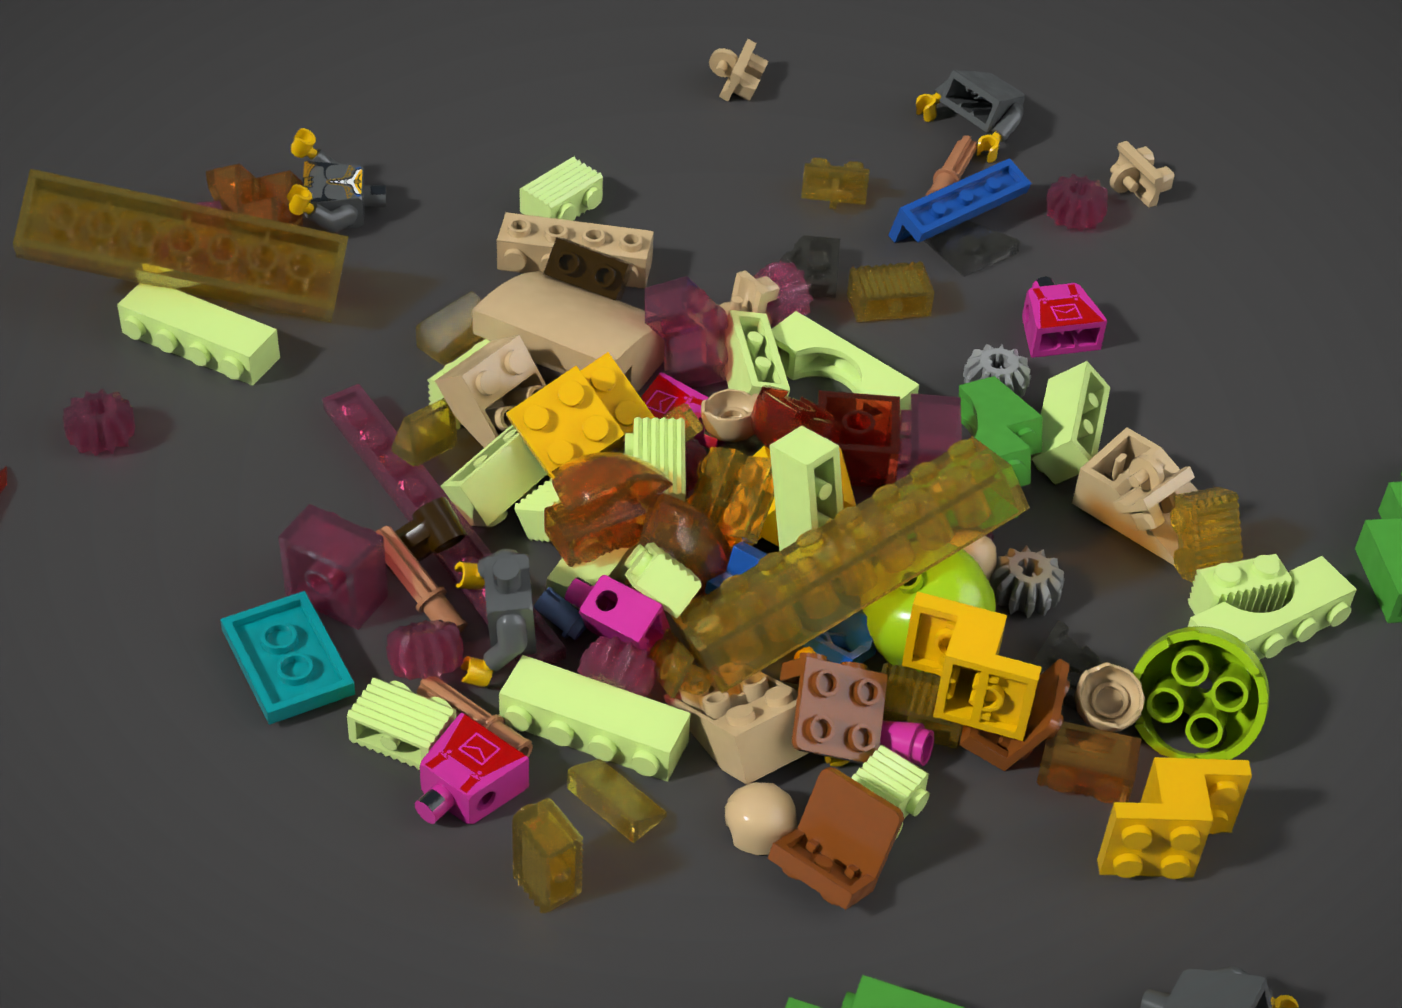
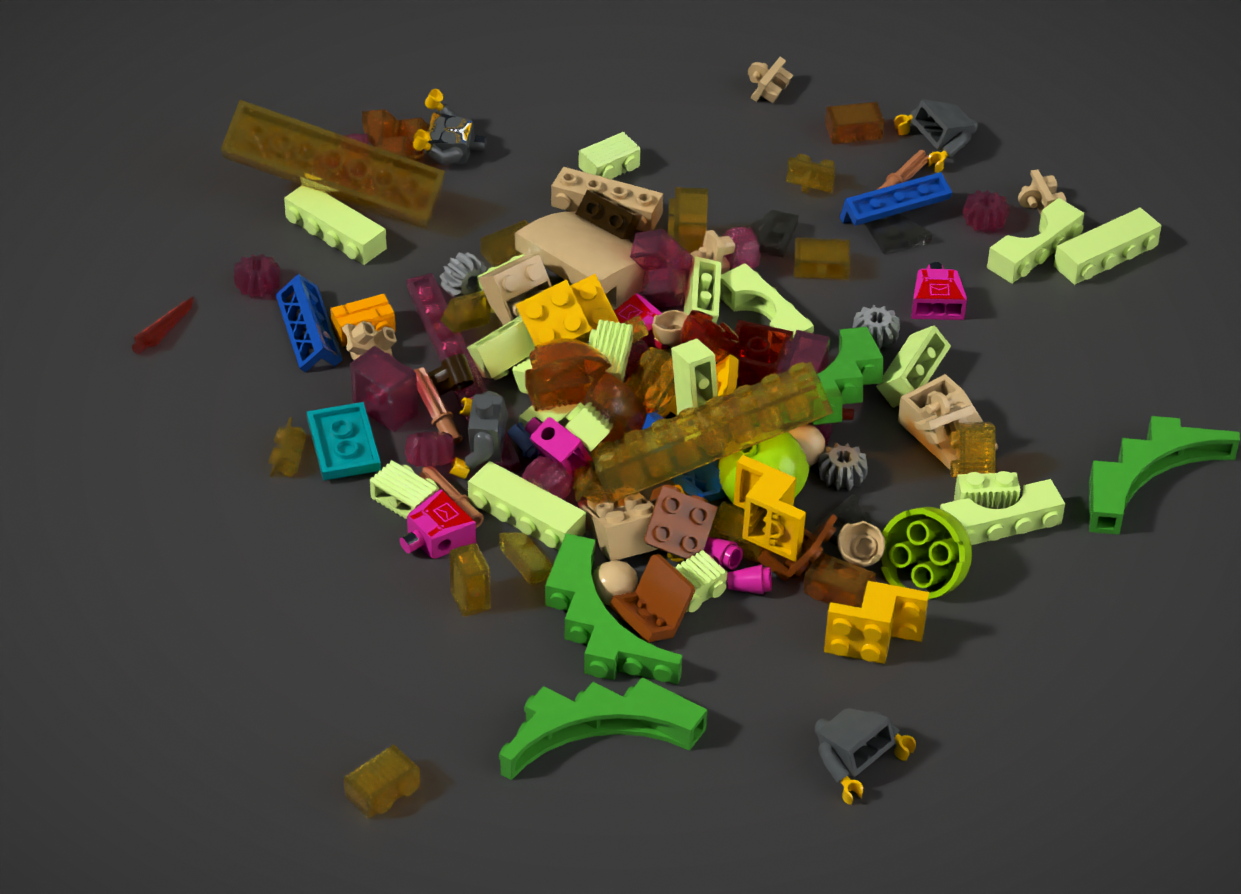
camera: 15 degrees right, 0 degrees up
(194, 471) = (314, 318): none -> blue fence
(196, 697) = (283, 456): none -> clear yellow hinge
(273, 466) = (371, 309): none -> light orange brick
(287, 496) = (364, 337): none -> tan hips
(404, 382) = (461, 275): none -> light grey gear
(704, 256) = (689, 217): none -> clear yellow brick
(748, 893) = (588, 622): none -> bright green arch
(867, 111) = (854, 122): none -> clear orange brick
(961, 778) = (751, 580): none -> dark pink cone
(1140, 255) = (1016, 256): none -> yellowish green arch
(1247, 228) = (1107, 246): none -> yellowish green brick

